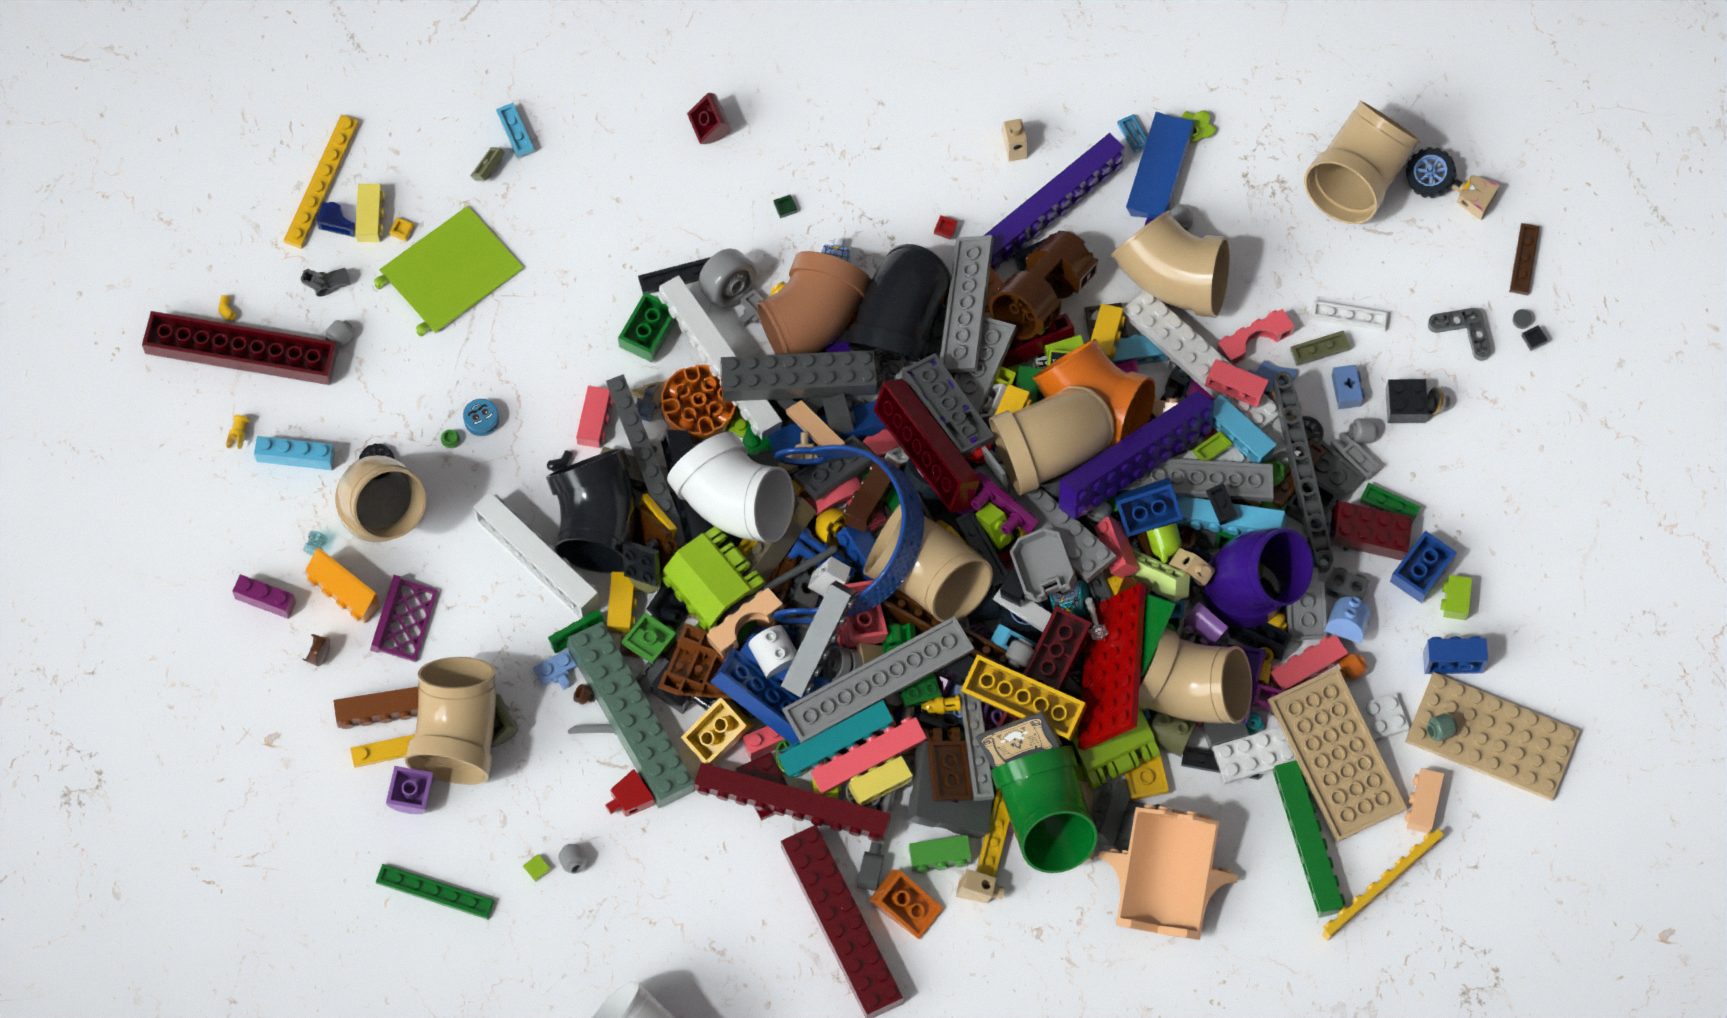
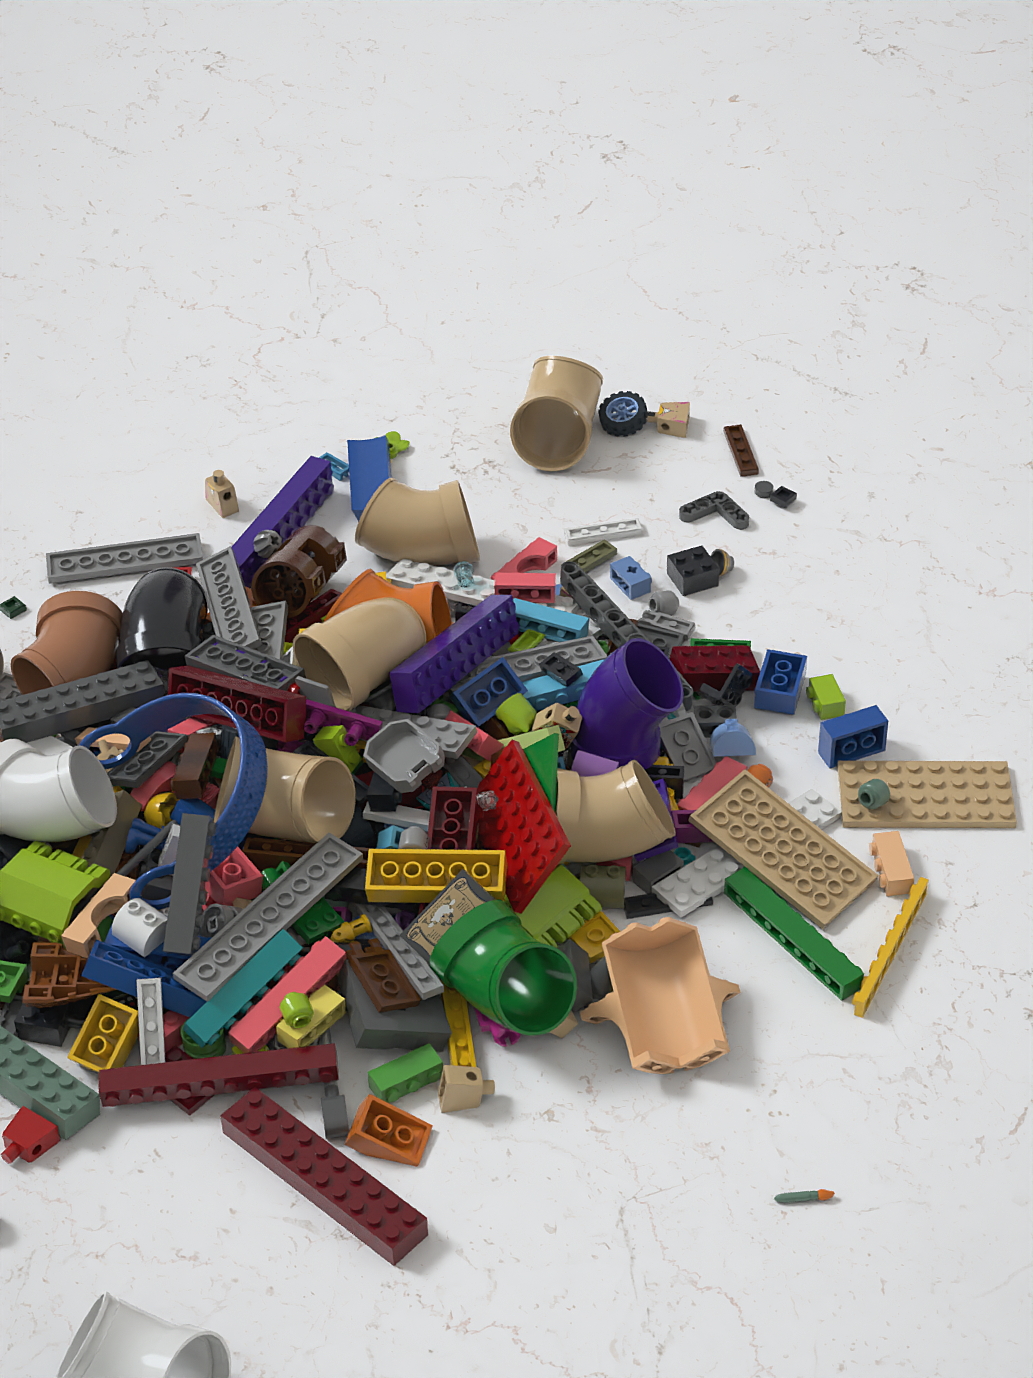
camera: 20 degrees left, 25 degrees down
(753, 739) = (151, 1021): none -> white plate
(868, 777) = (296, 1010): none -> lime head
(902, 184) = (123, 558): none -> light grey plate
(1028, 237) = (267, 543): none -> light grey piece
(1190, 343) = (464, 573): none -> clear light blue bush
(1361, 564) = (733, 688): none -> black bracket

